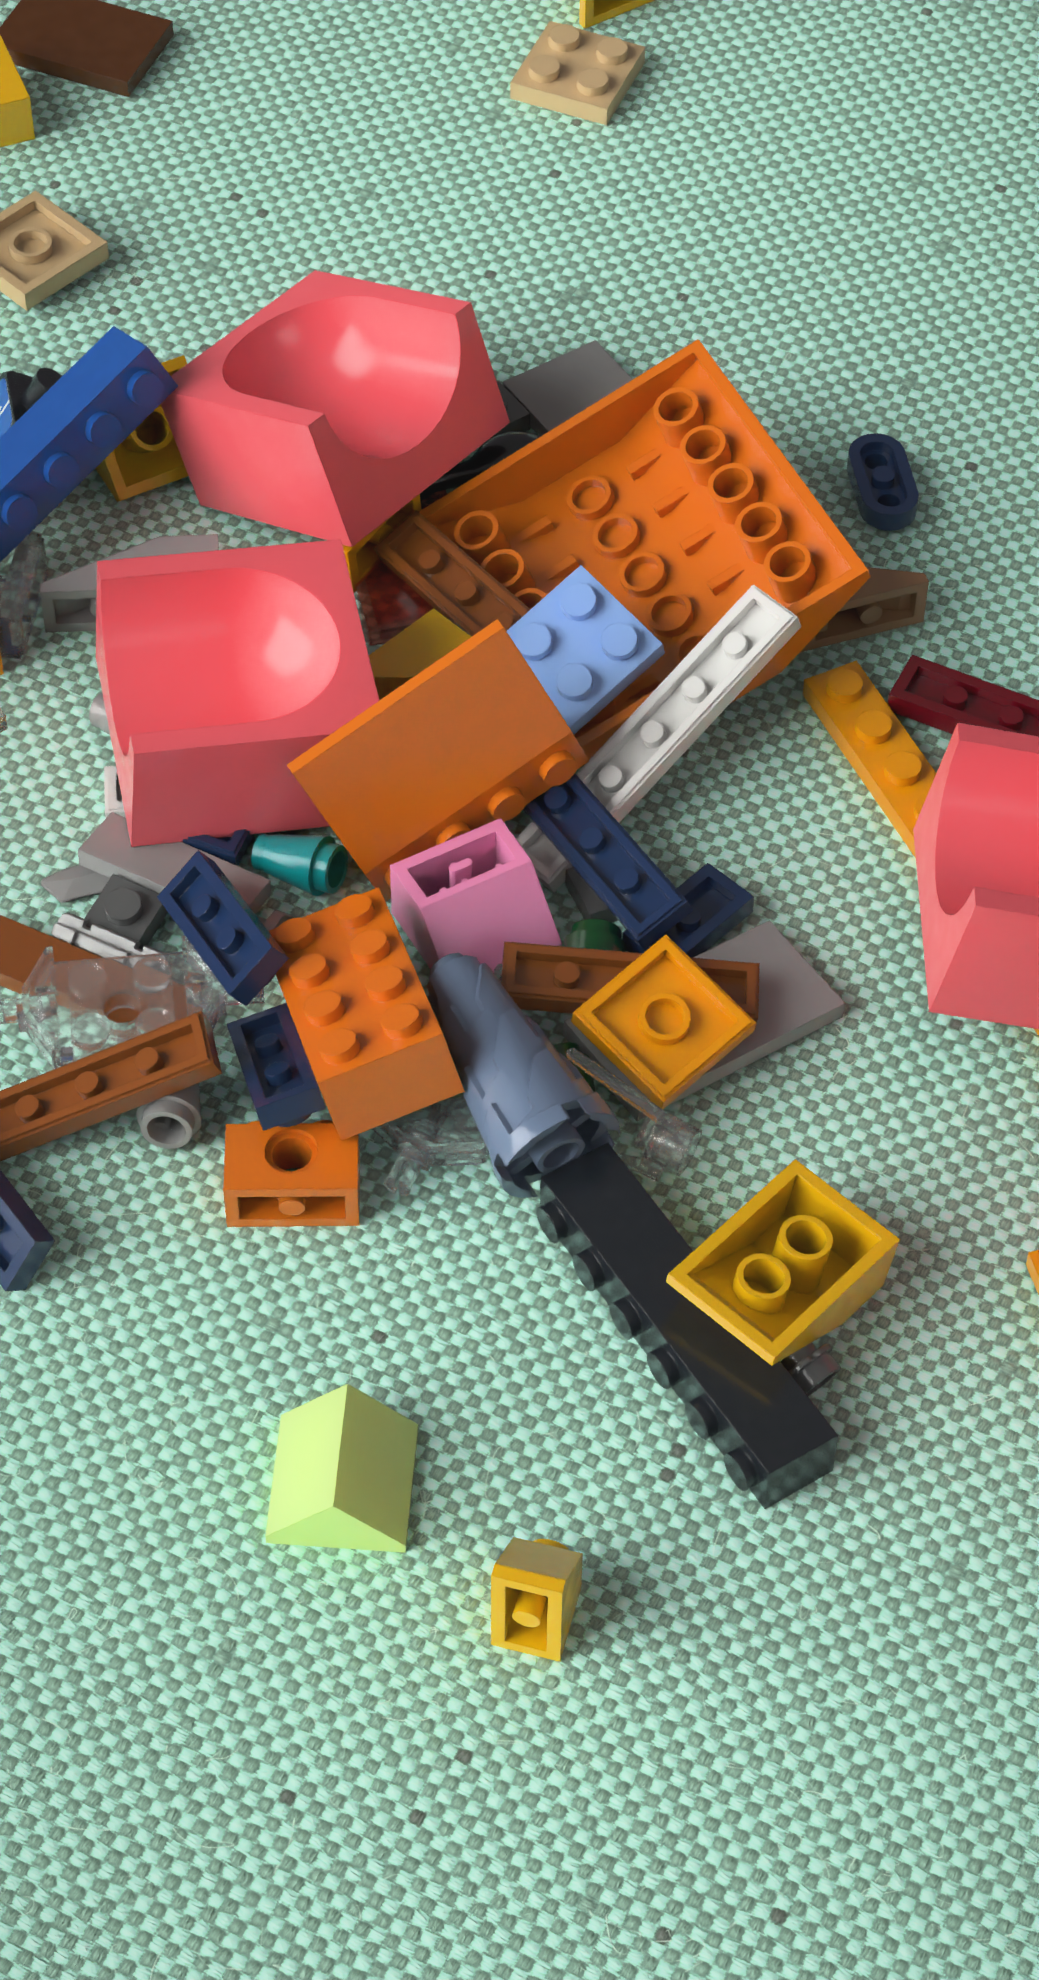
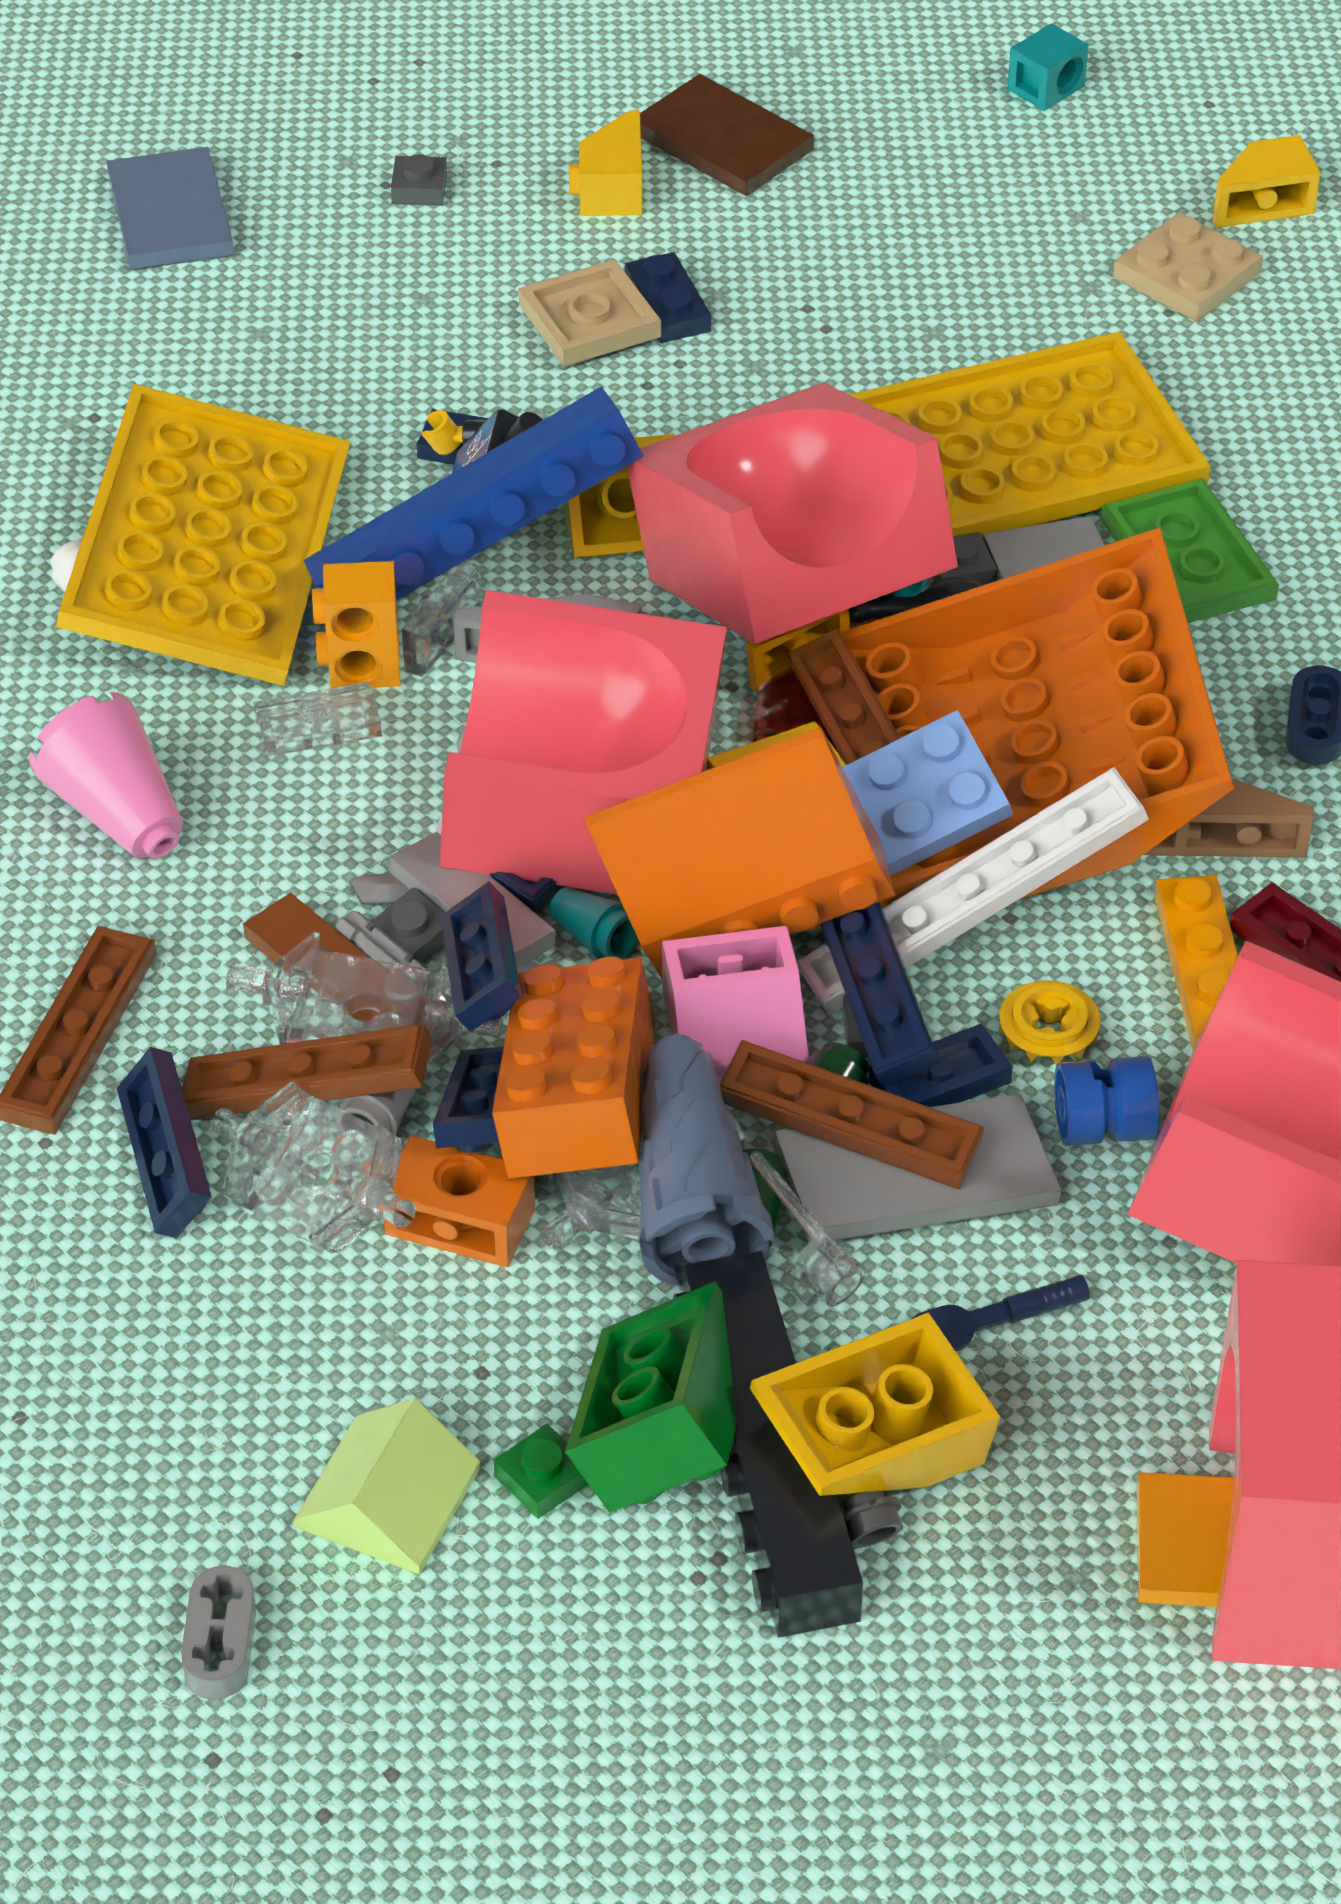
camera: 20 degrees right, 5 degrees down
(102, 1178) = (287, 1147): none -> clear plate
(103, 213) = (671, 296): none -> dark blue plate
(228, 1673) = (204, 1631): none -> light grey beam
(481, 1416) = (539, 1471): none -> green plate
(534, 259) = (1046, 433): none -> yellow plate
(534, 1596) = (510, 1643): yellow slope -> none
(572, 1315) = (657, 1401): none -> green slope
(663, 1022) = (863, 1155): light orange tile -> none
(681, 316) = (1206, 549): none -> bright green tile
(757, 824) = (1052, 1003): none -> yellow gear
(844, 1131) = (959, 1324): none -> dark blue piece
(845, 909) = (1106, 1100): none -> blue wheel

